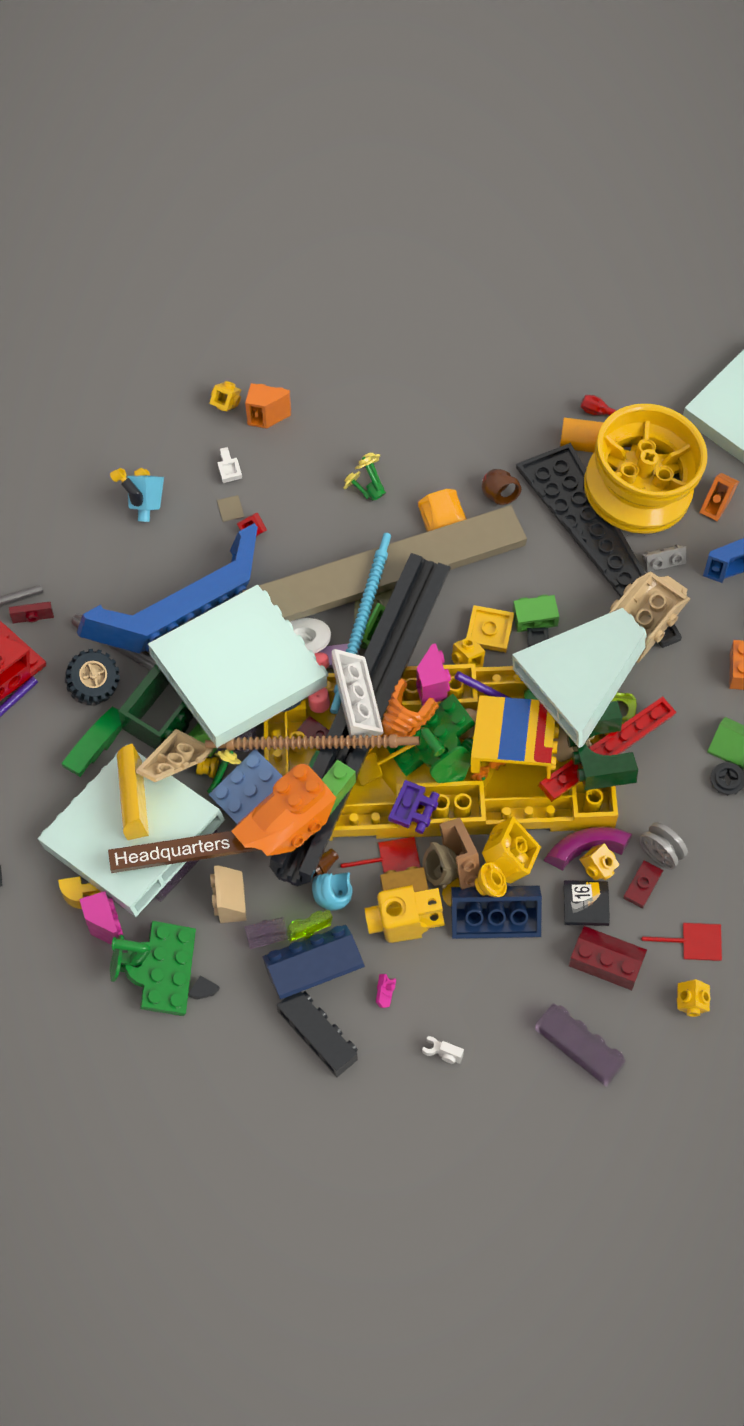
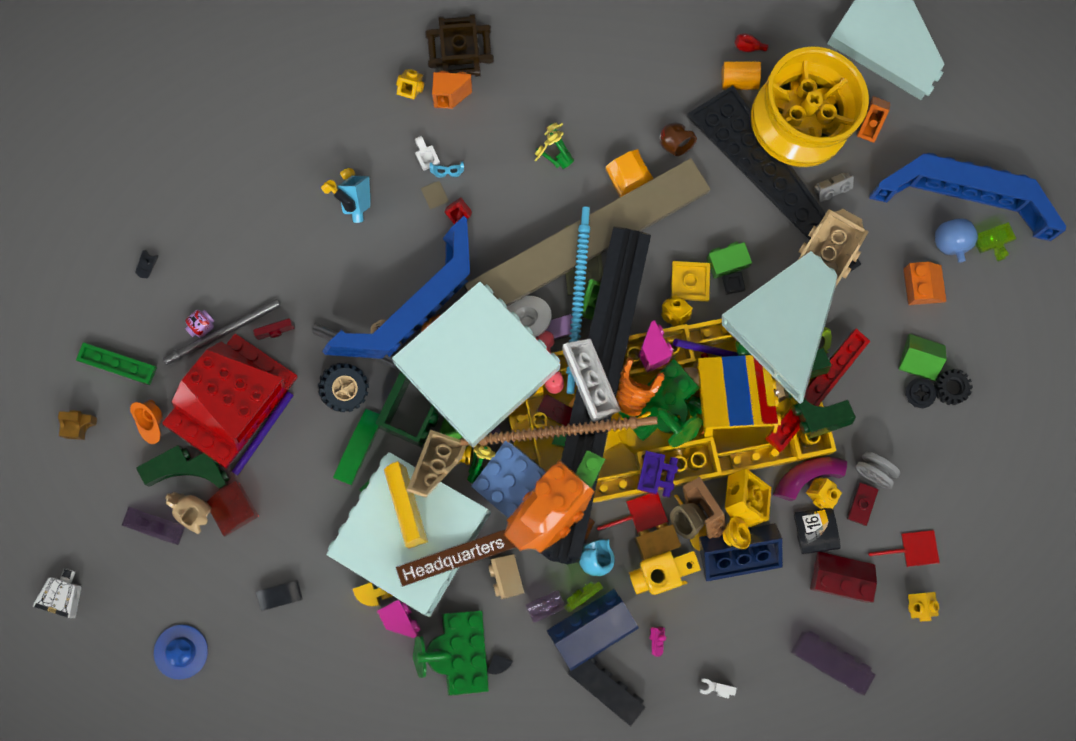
camera: 15 degrees left, 15 degrees up
(235, 482) = (434, 170): none -> medium azure cap
(286, 366) = (459, 44): none -> dark brown brick

